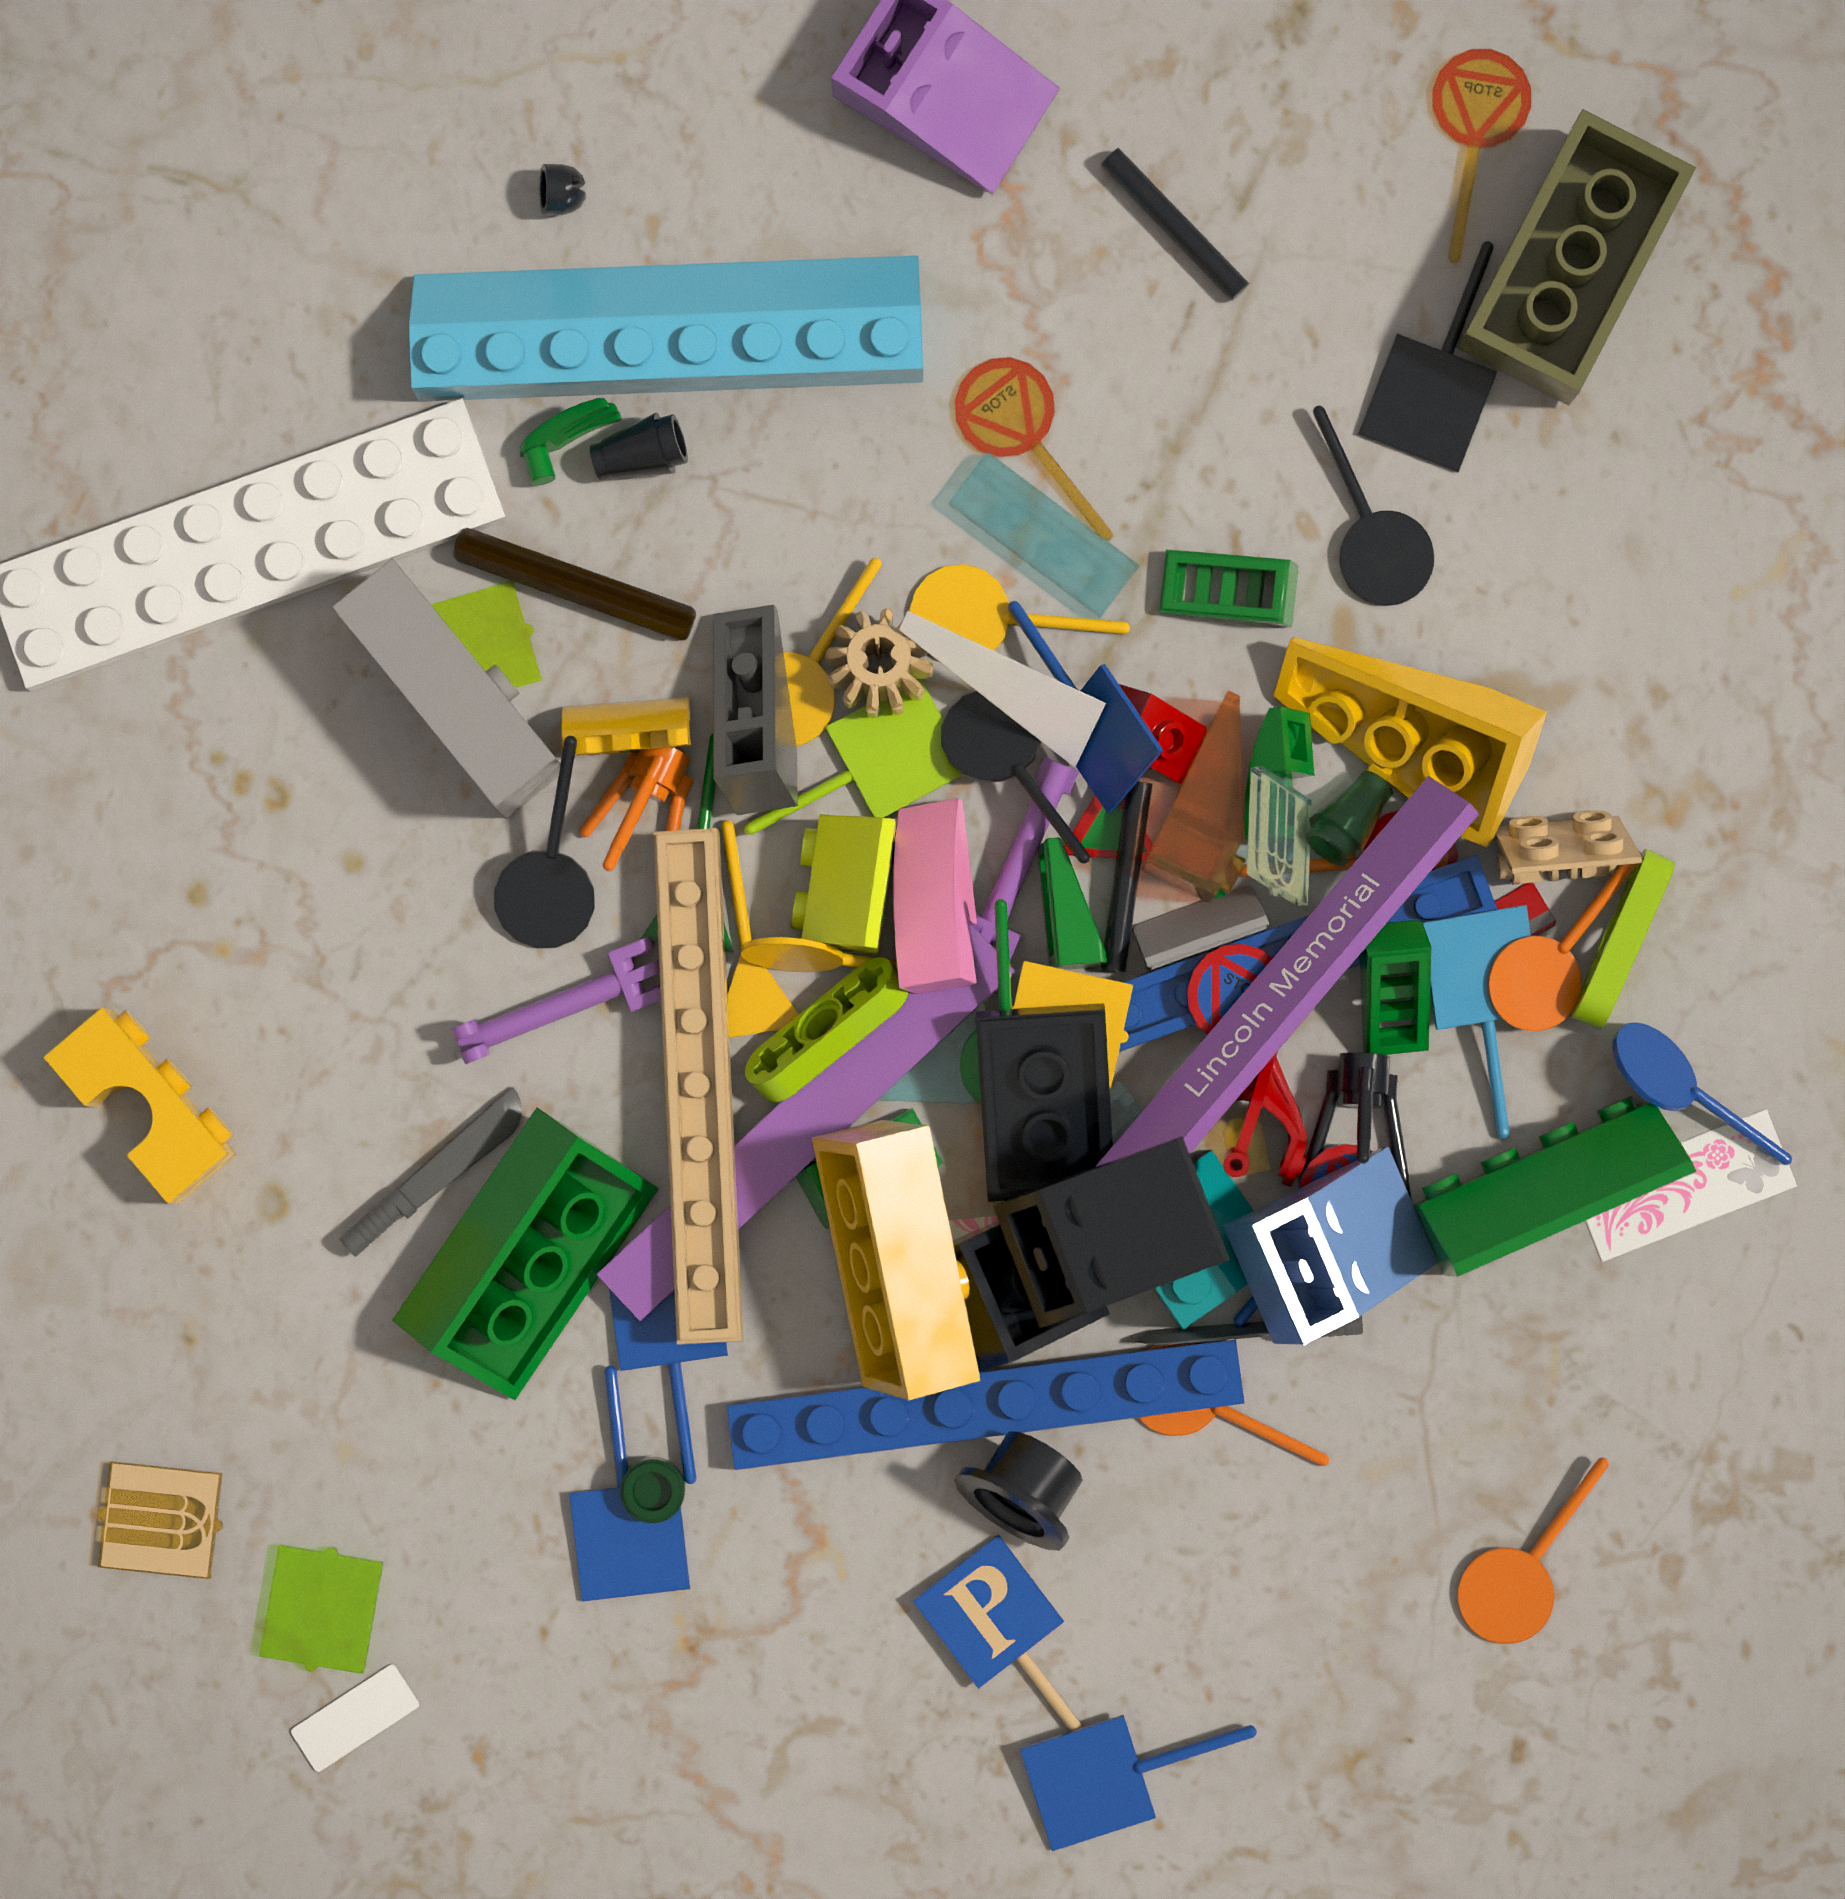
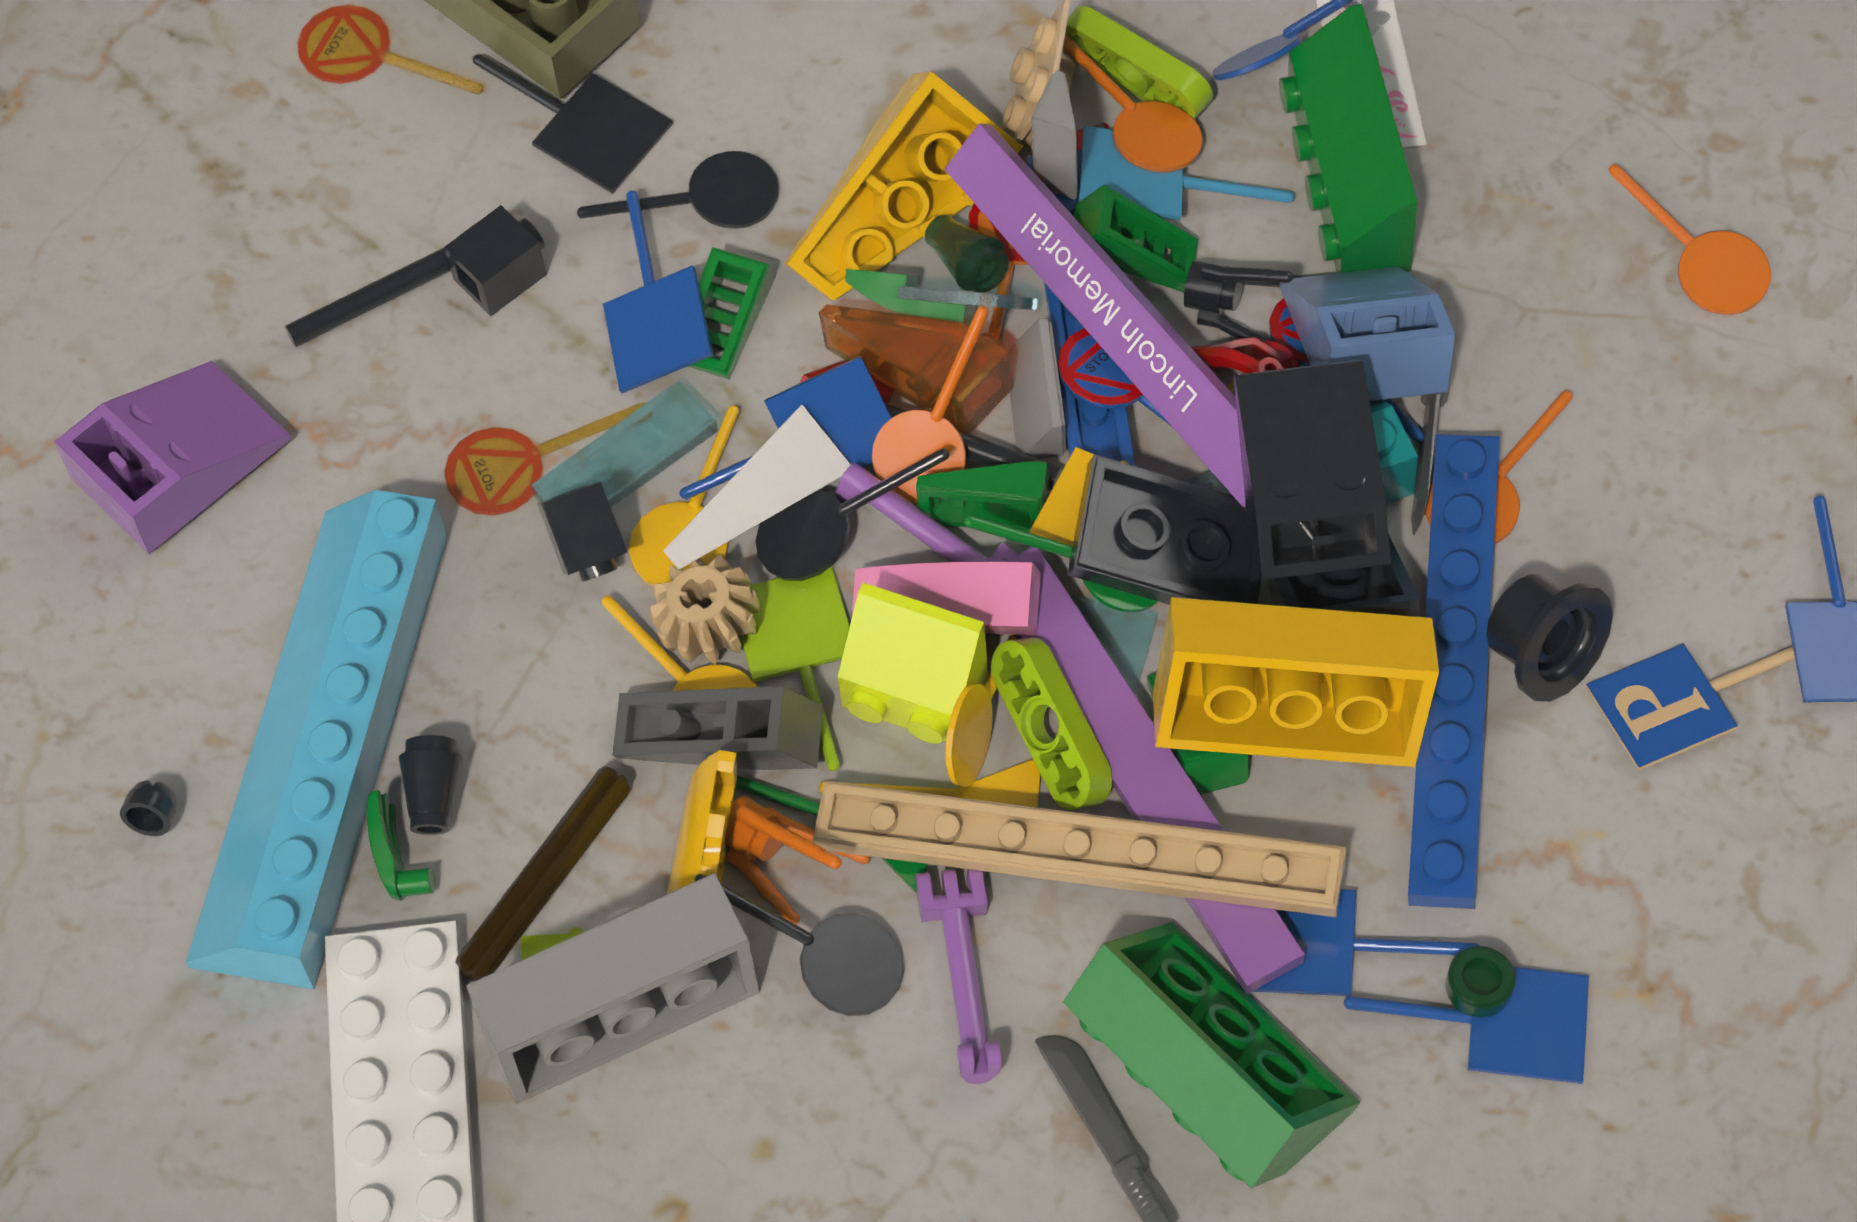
camera: 70 degrees left, 25 degrees down
(936, 519) = (583, 531): none -> black brick
(1108, 831) = (922, 432): none -> orange piece
(1203, 524) = (657, 324): none -> blue piece
(1237, 342) = (497, 259): none -> black brick
(1469, 883) = (1055, 139): none -> light grey slope

